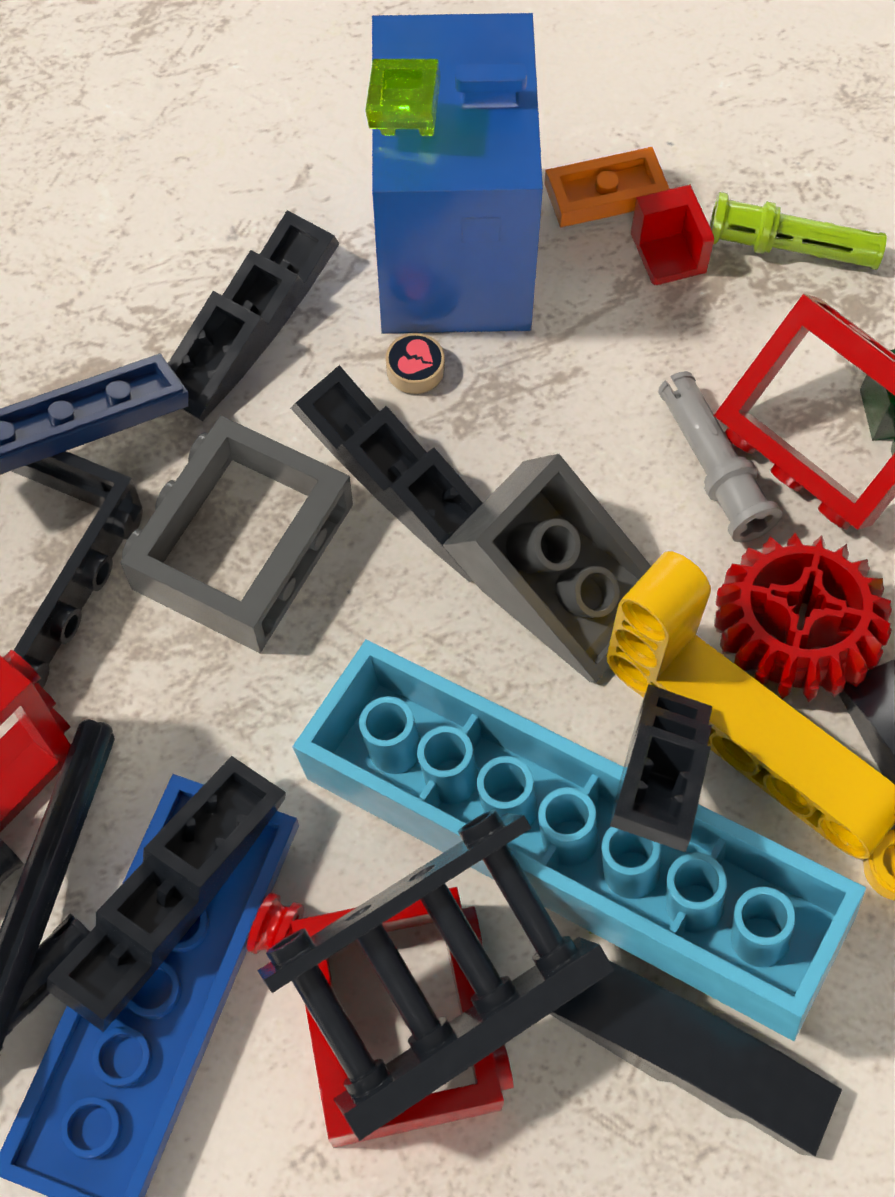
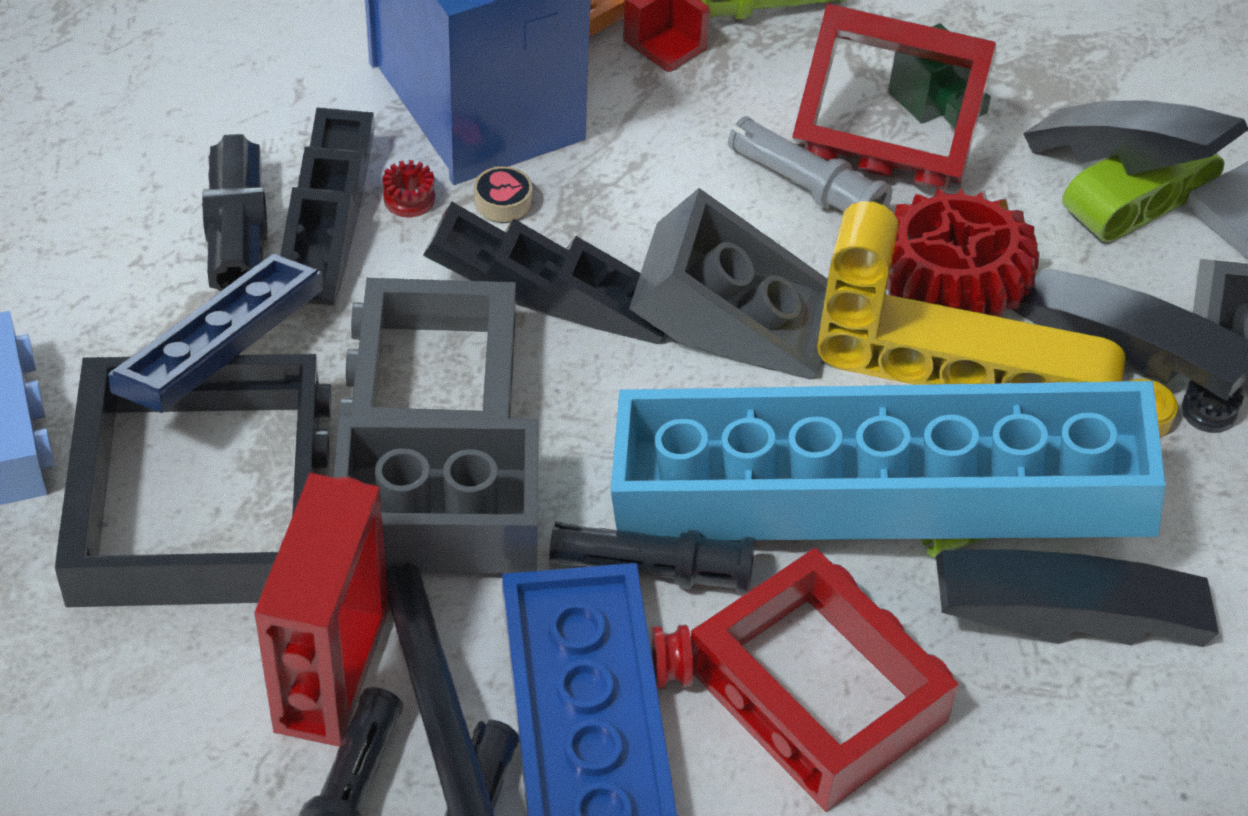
camera: 30 degrees left, 15 degrees down
(157, 668) = (450, 489): none -> dark grey brick
(162, 291) = (234, 210): none -> black piece
(166, 893) = (565, 658): black slope -> none
(343, 313) = (409, 178): none -> red bush
(348, 830) = (685, 559): none -> black pin
(438, 1047) = (888, 649): black fence -> none
(664, 769) = (945, 356): black slope -> none

